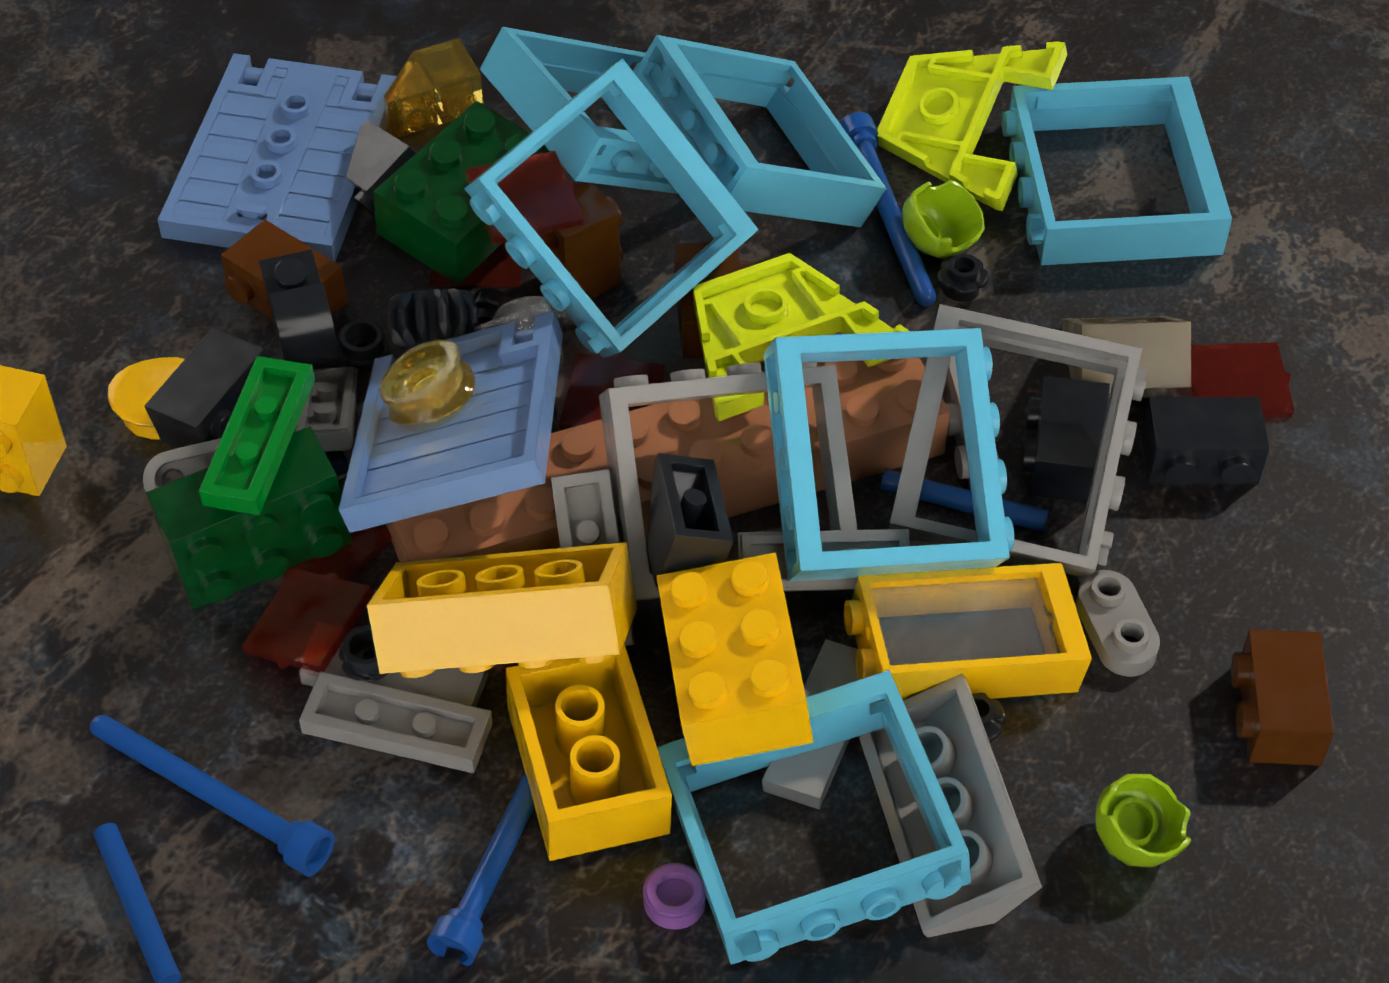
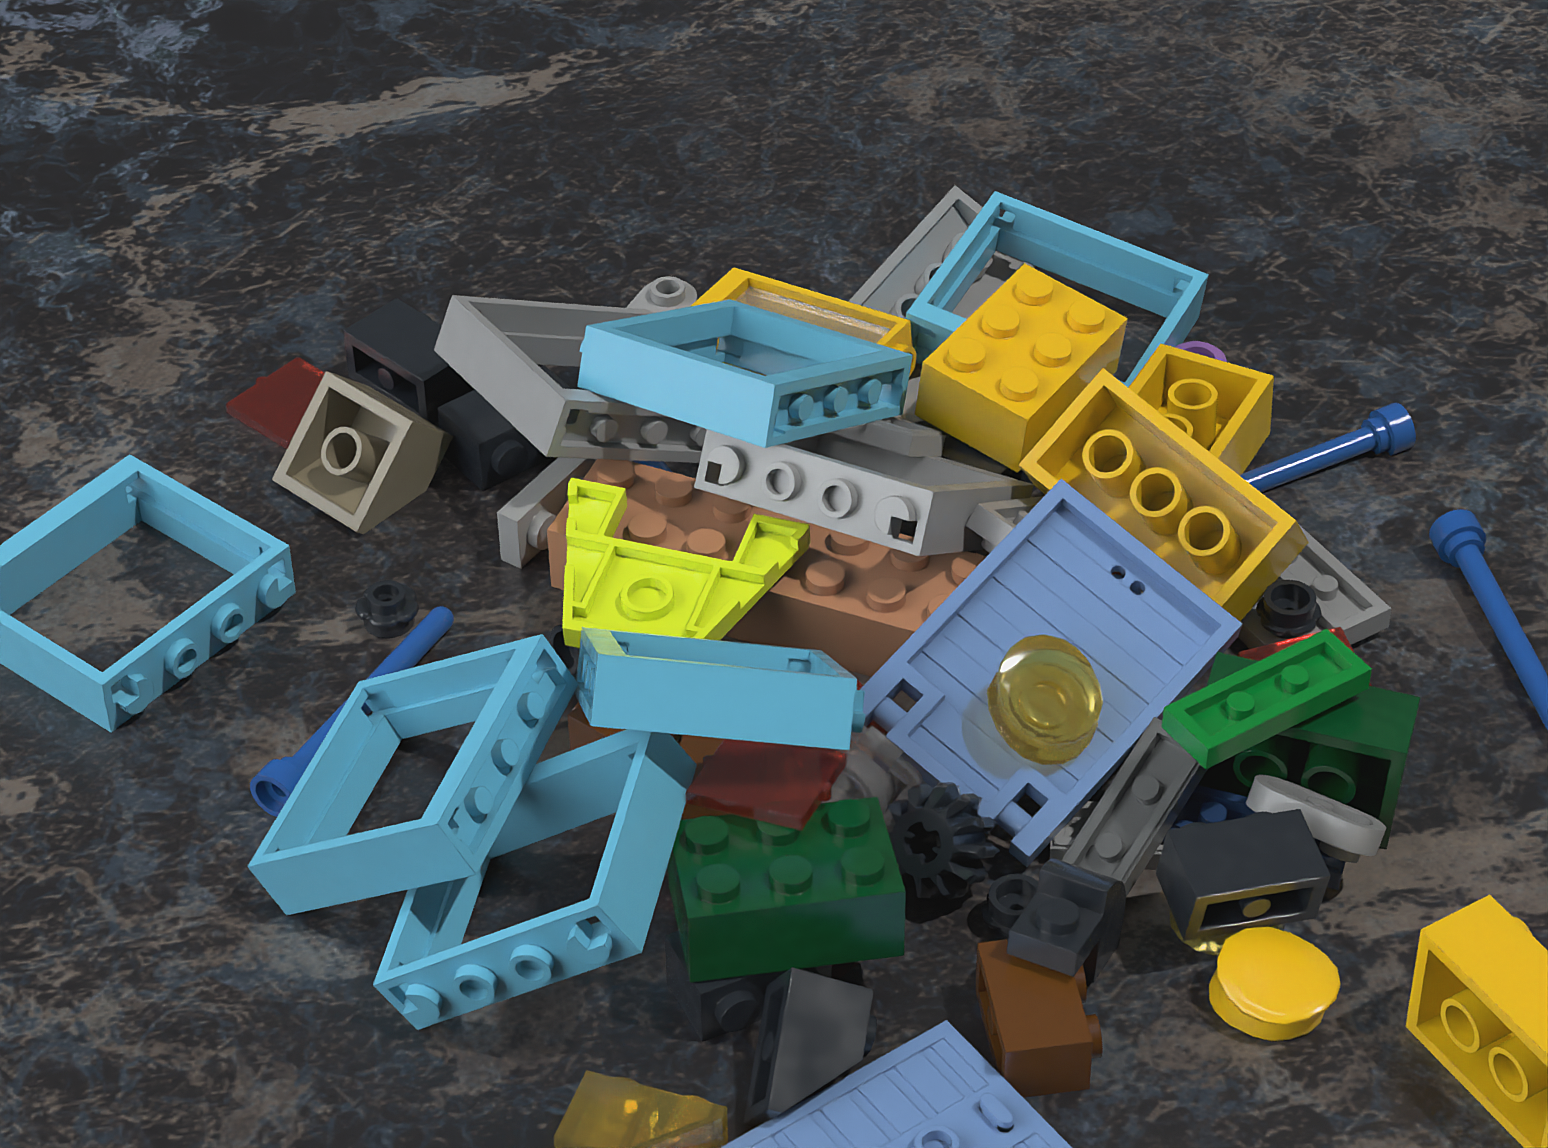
camera: 135 degrees left, 10 degrees down
(686, 516) = (962, 430): black slope -> none
(942, 219) = (347, 641): lime hair -> none
(944, 108) = (169, 732): neon yellow wing -> none
(1141, 821) = (828, 199): lime hair -> none
(1283, 697) = (619, 203): reddish brown brick -> none

